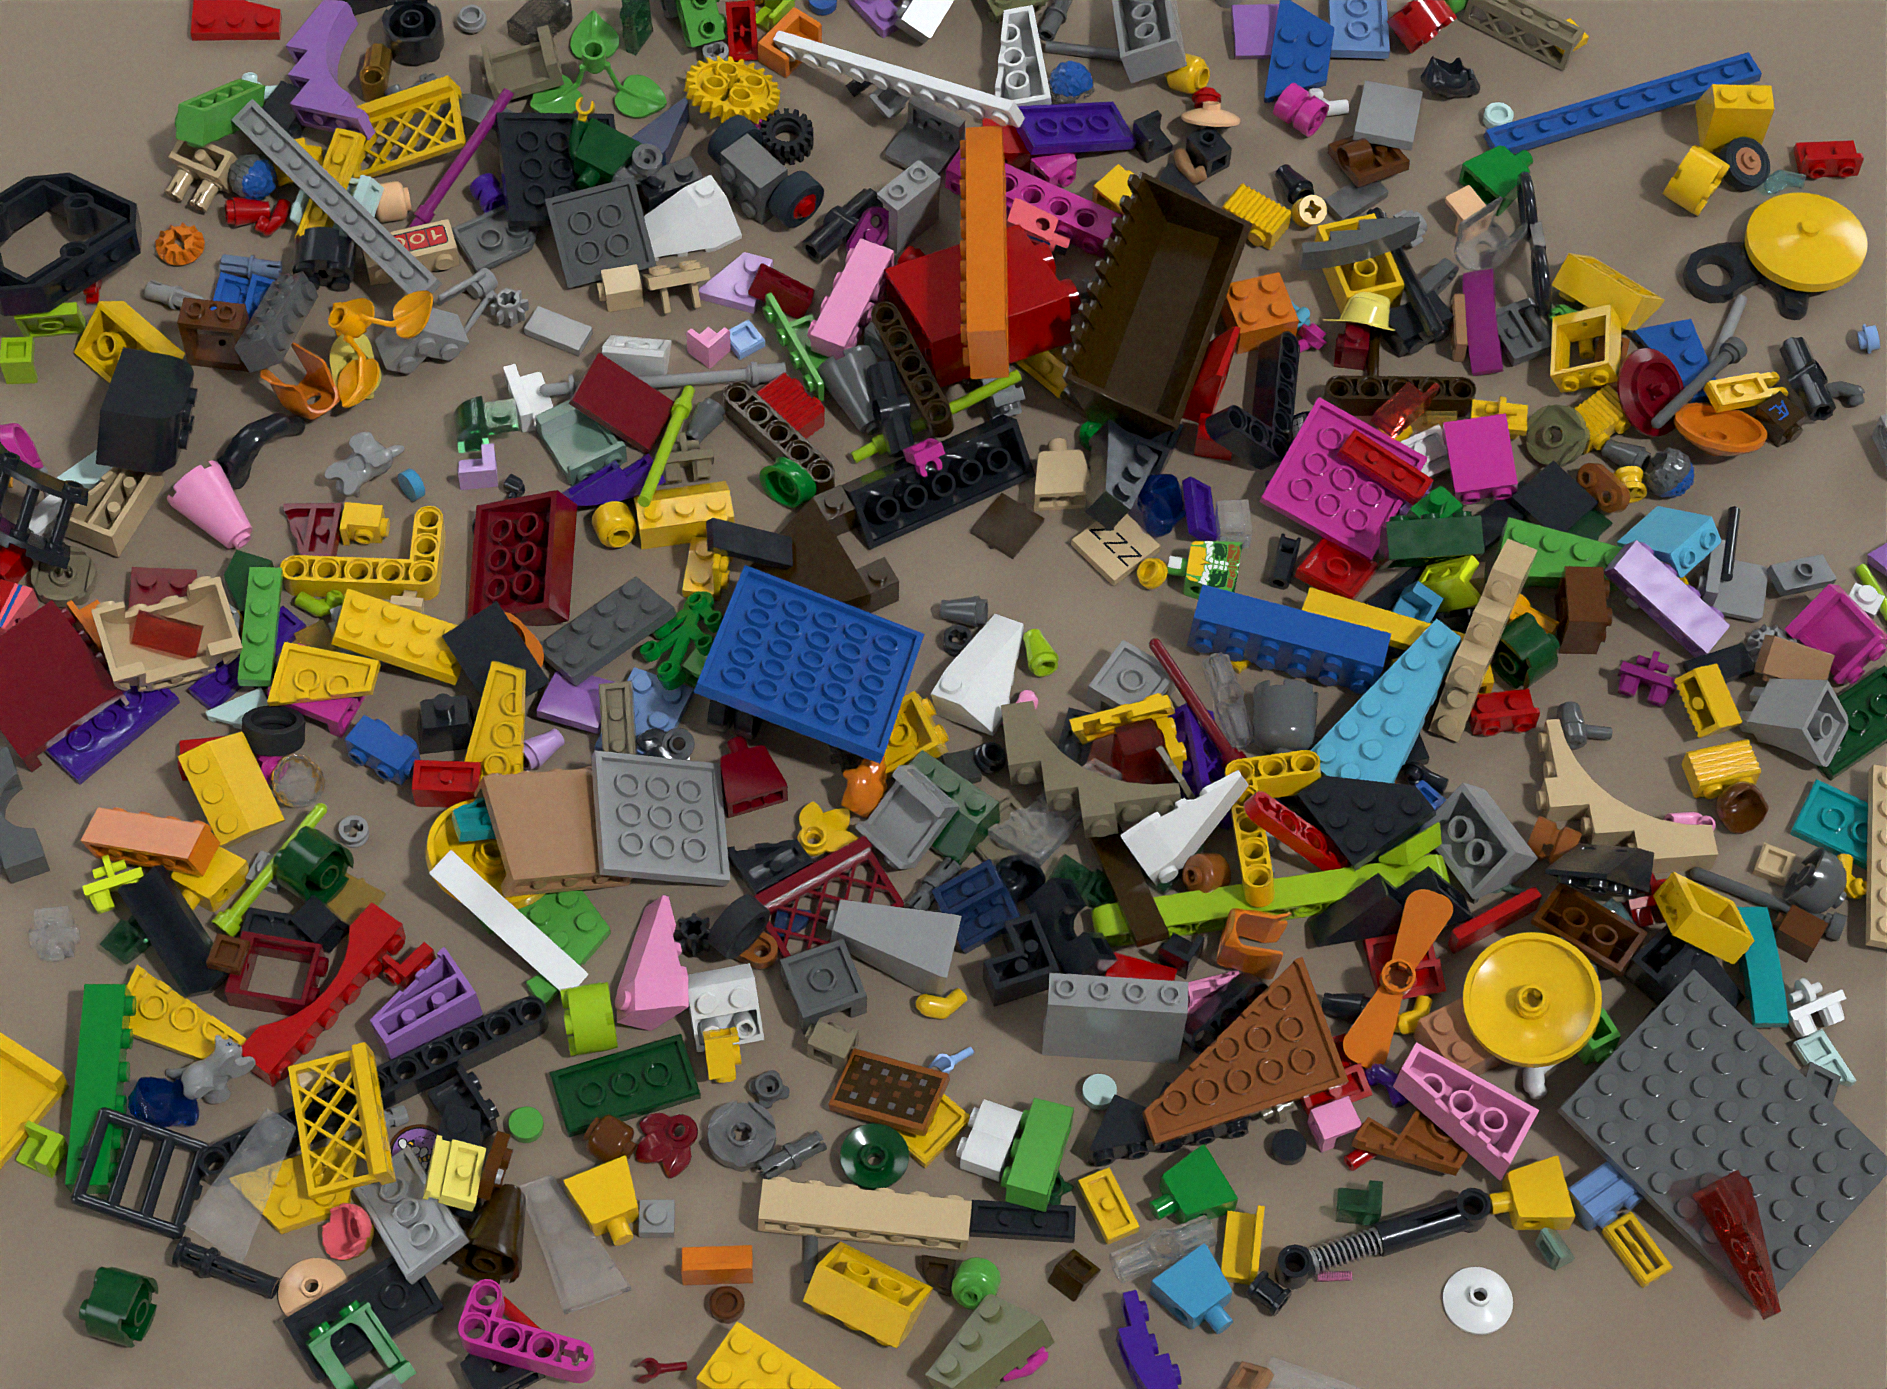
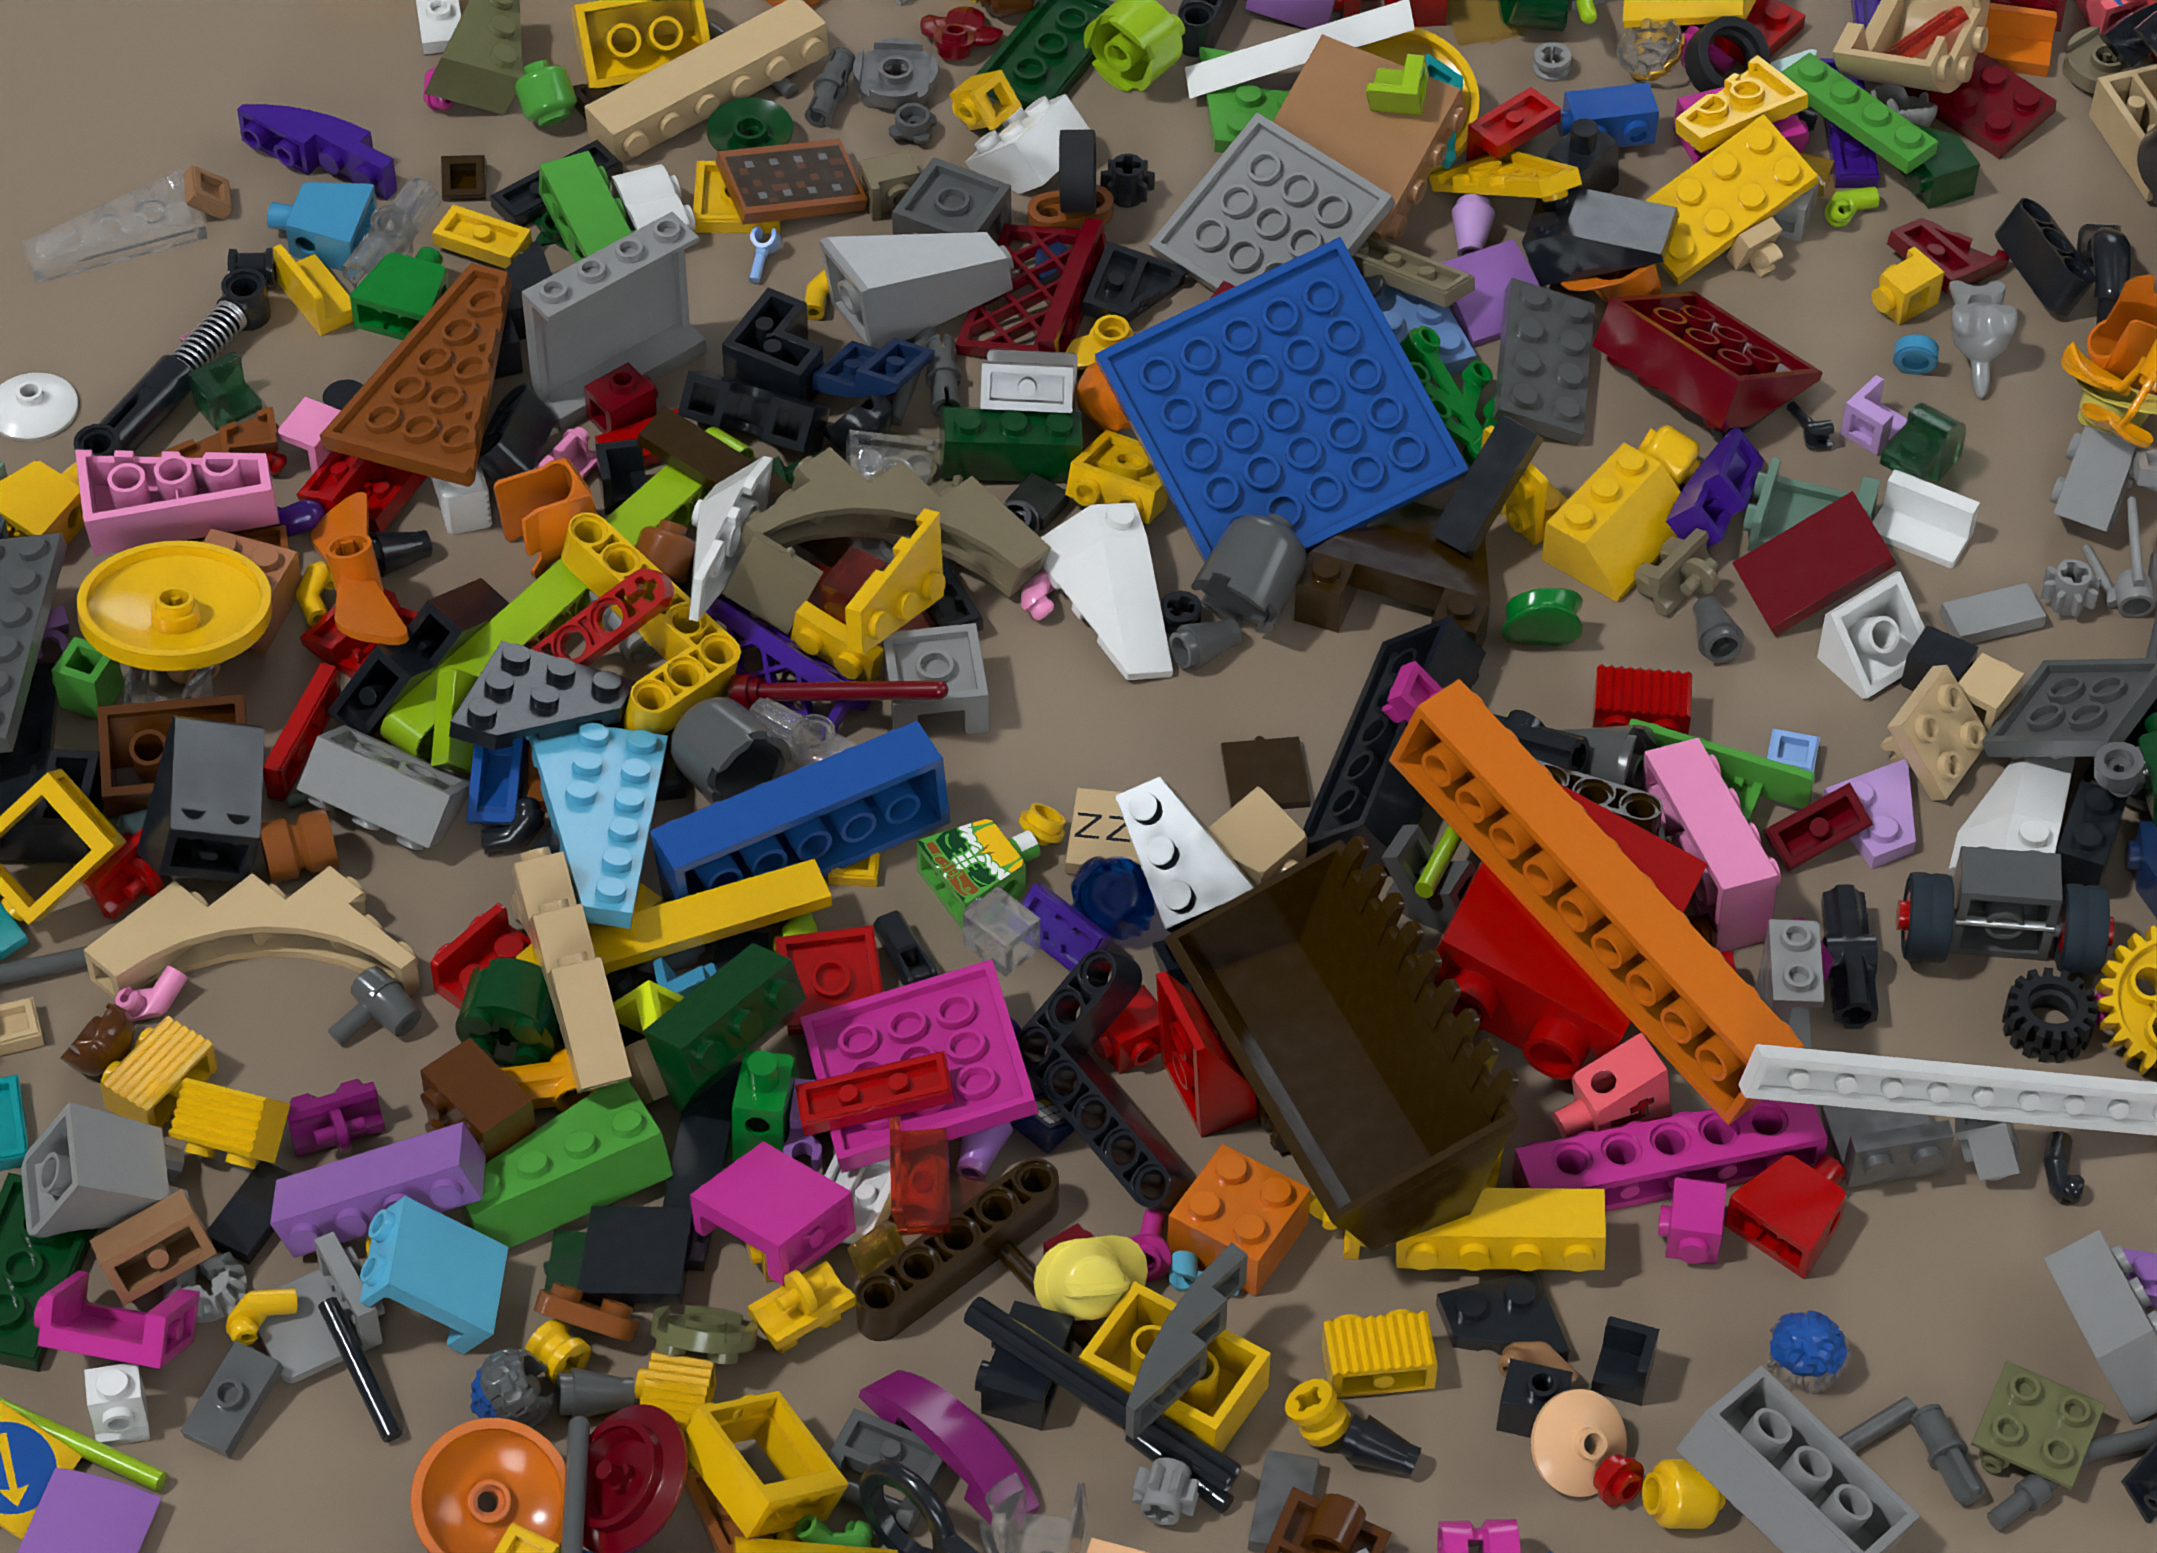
camera: 140 degrees right, 10 degrees down
(212, 505) = (2067, 186): bright pink cone -> none
(273, 480) = (2044, 256): none -> black beam
(376, 570) = (1800, 274): yellow beam -> none
(518, 800) = (1400, 89): none -> lime panel
(623, 312) = (1937, 649): none -> black panel
(653, 981) = (1122, 105): bright pink wedge -> none
(680, 411) = (1752, 616): lime bar -> none
(708, 345) = (1817, 703): bright pink panel -> none
(752, 374) = (1729, 716): light grey bar -> none
(775, 427) = (1569, 658): dark brown beam -> none
(916, 602) = (1252, 570): none -> dark grey cylinder
(1021, 60) = (1887, 1313): white wedge -> none
(1040, 655) = (1076, 655): lime cone -> none
(1074, 128) = (1729, 1272): dark purple tile -> none
(1440, 276) = (1060, 1447): dark grey beam -> none
(1458, 330) = (953, 1378): medium nougat tile -> none
(1758, 600) = (253, 1310): none -> yellow arm

